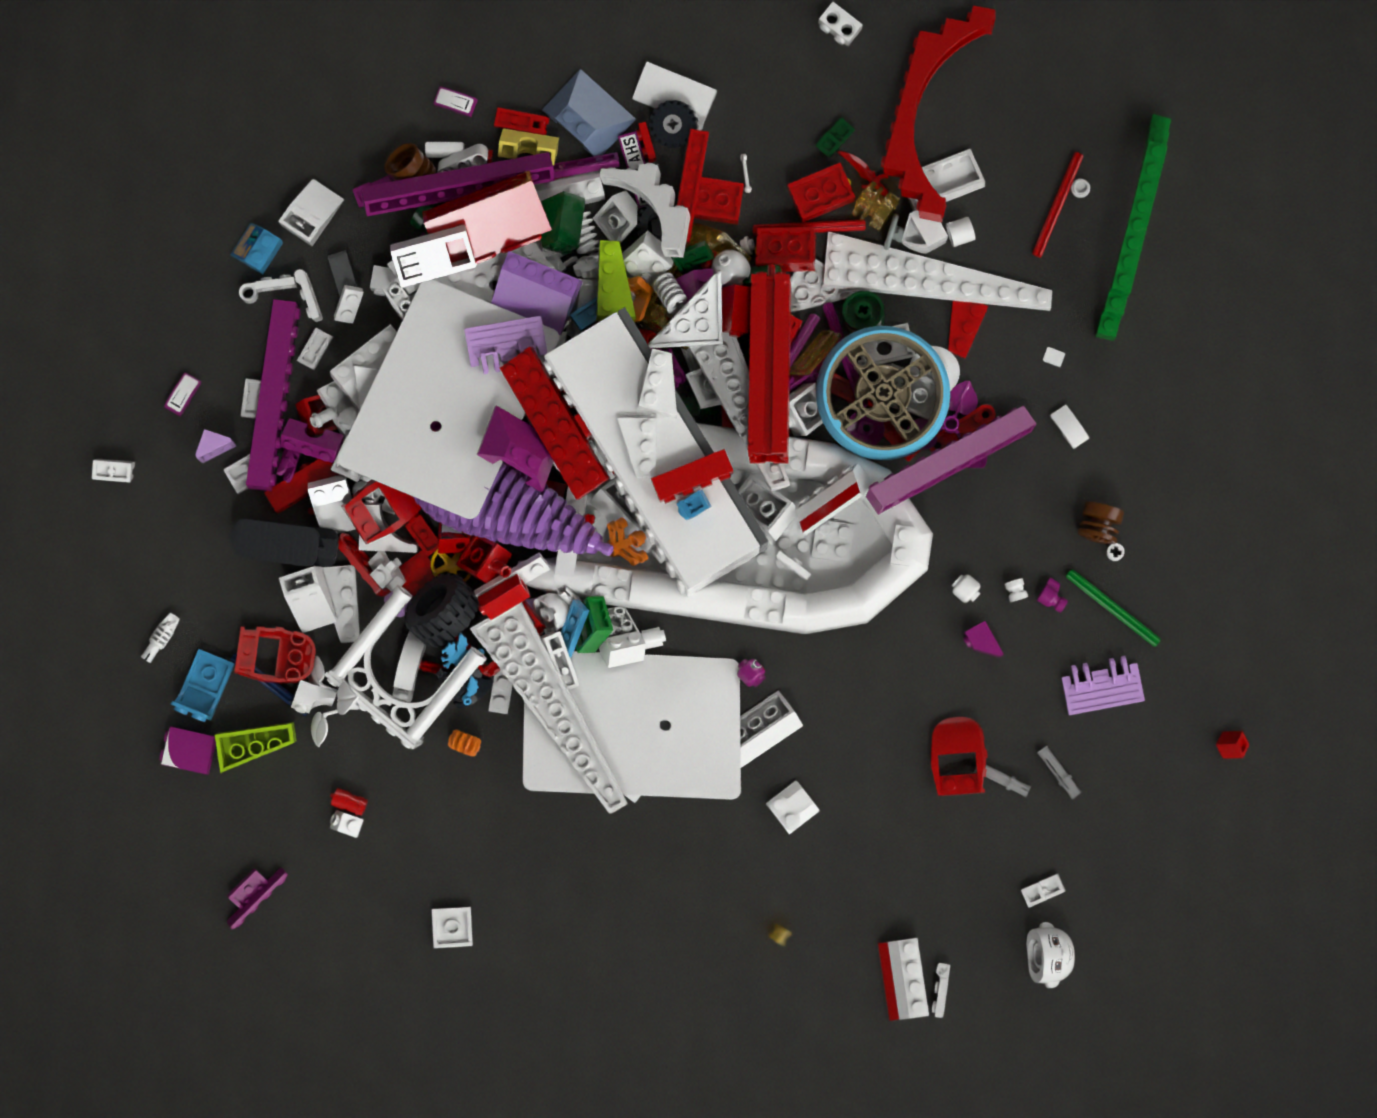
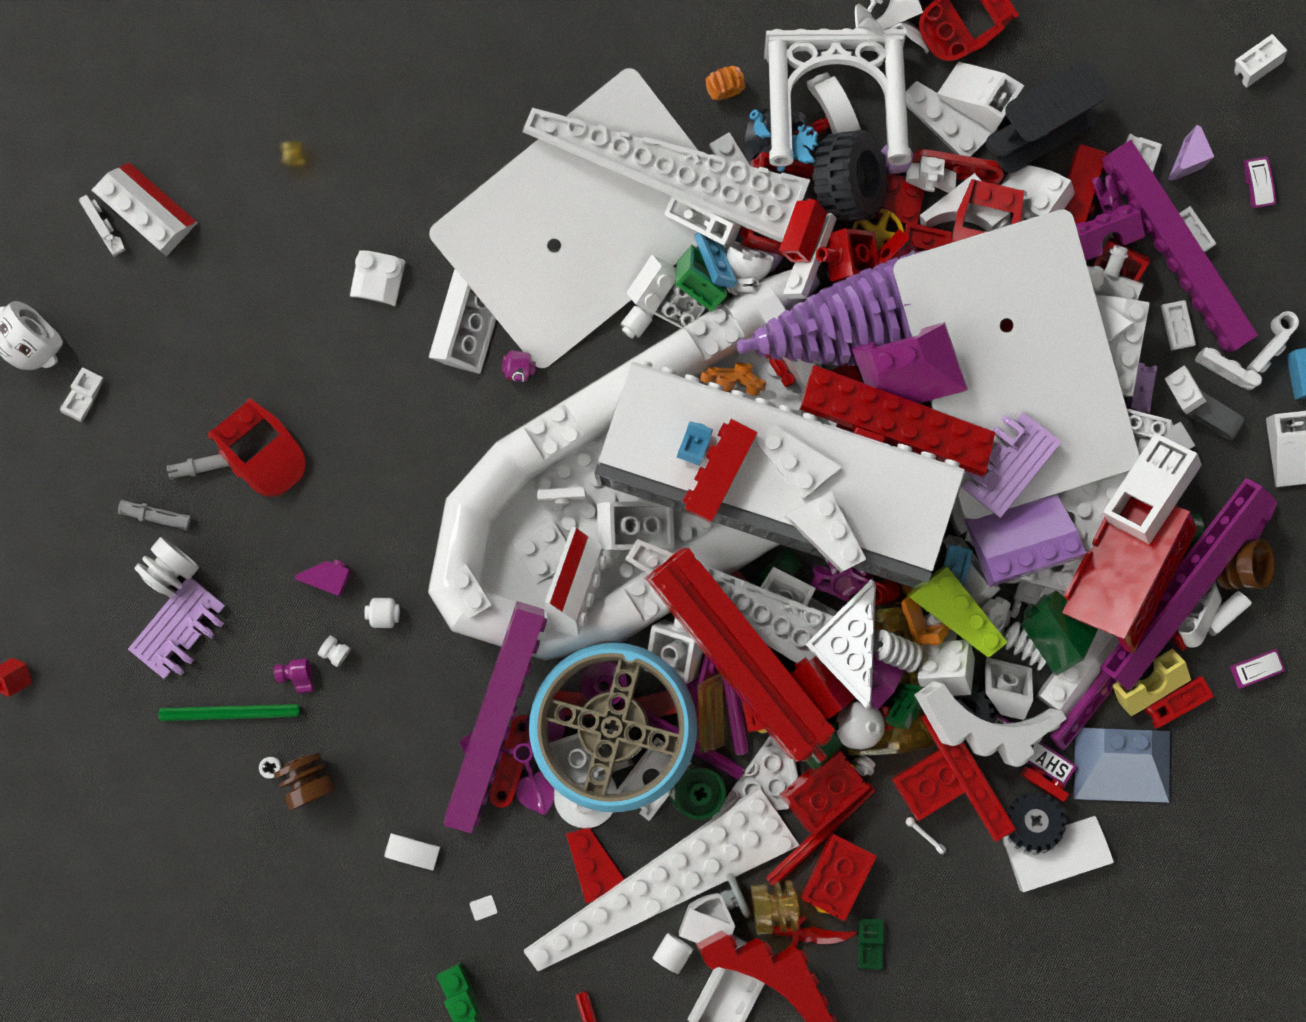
camera: 135 degrees right, 0 degrees up
(373, 327) = (1143, 389): none -> lavender hinge
(1078, 728) = (166, 567): none -> white wheel

